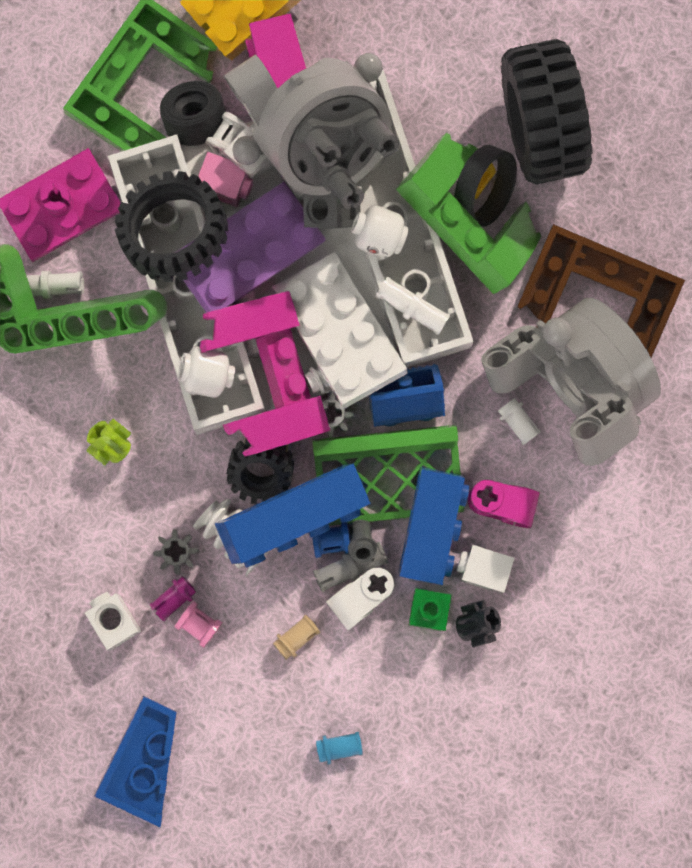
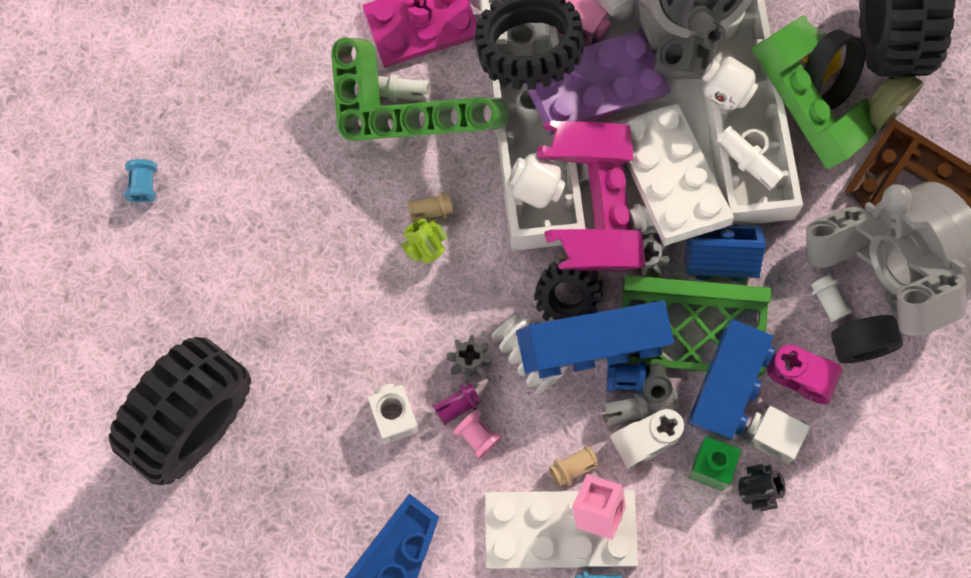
camera: 10 degrees right, 10 degrees down
(108, 404) = (430, 207): none -> tan pin
(294, 700) = (542, 533): none -> white plate
(325, 677) = (599, 506): none -> bright pink brick
(549, 203) = (892, 99): none -> olive piece
(552, 461) = (866, 339): none -> black tyre

